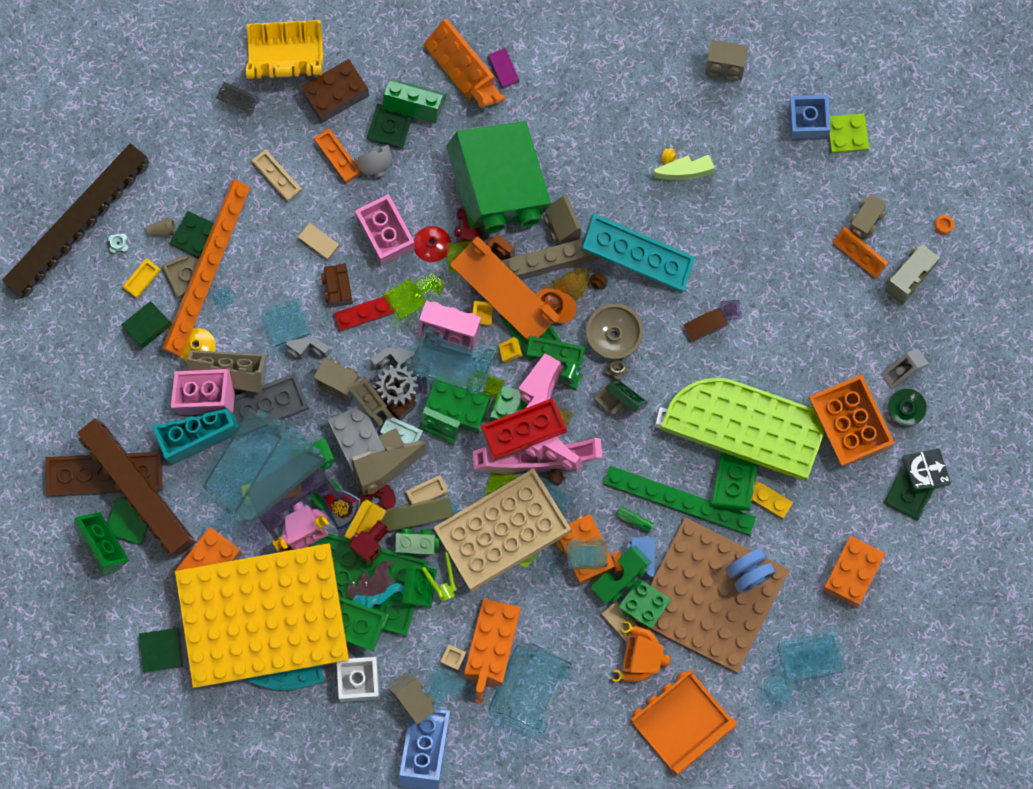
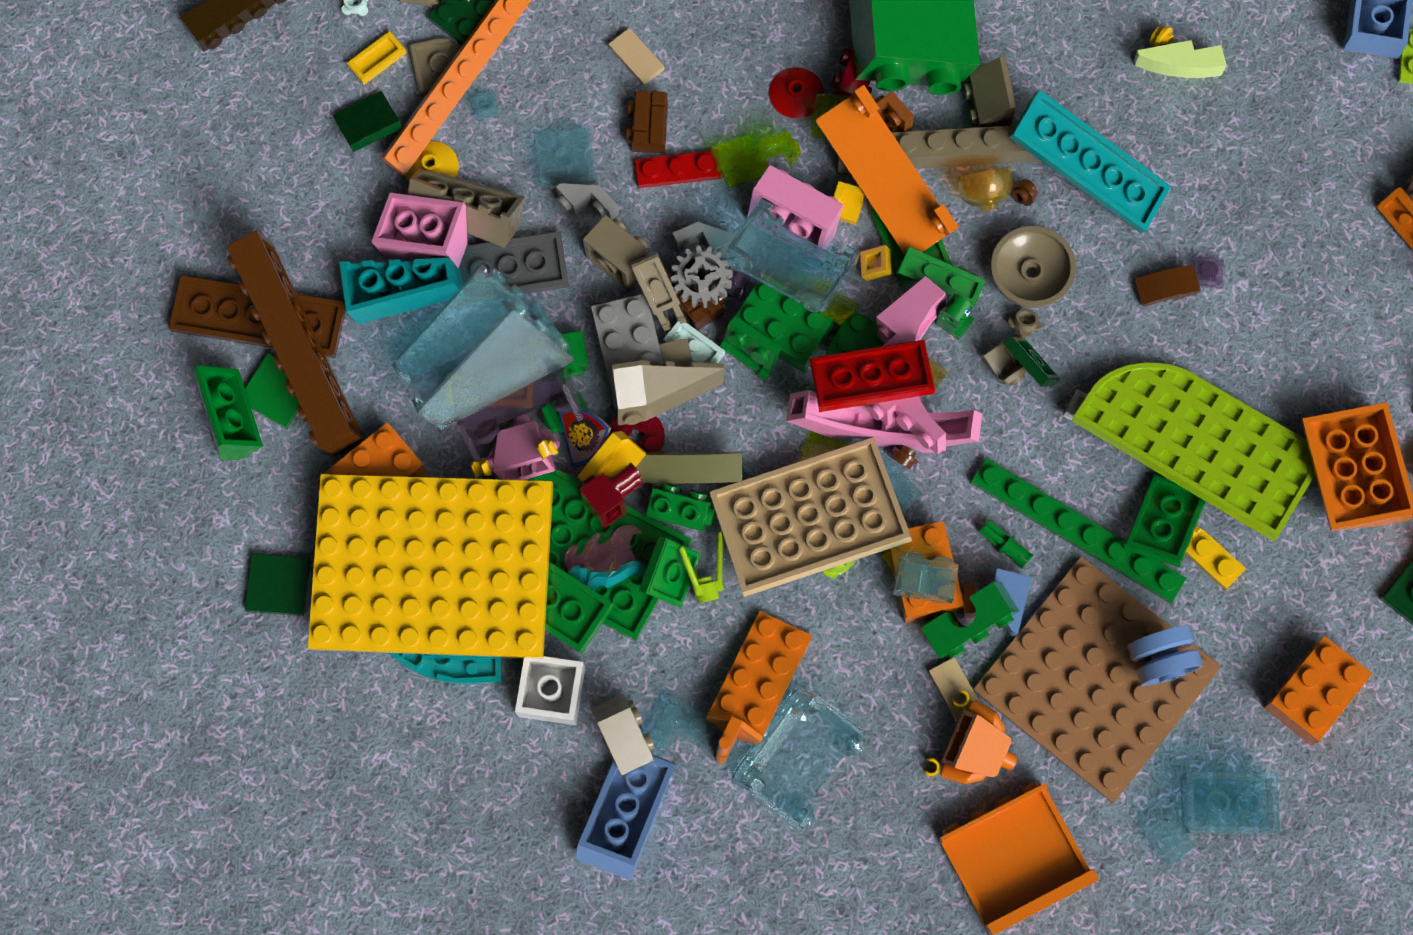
camera: 15 degrees right, 0 degrees up
(385, 229) = (733, 57): bright pink brick -> none
(428, 490) = (713, 438): tan tile -> none
(453, 657) = (697, 687): tan plate -> none
(560, 302) = (963, 208): orange piece -> none
(644, 604) = (995, 670): green hinge -> none

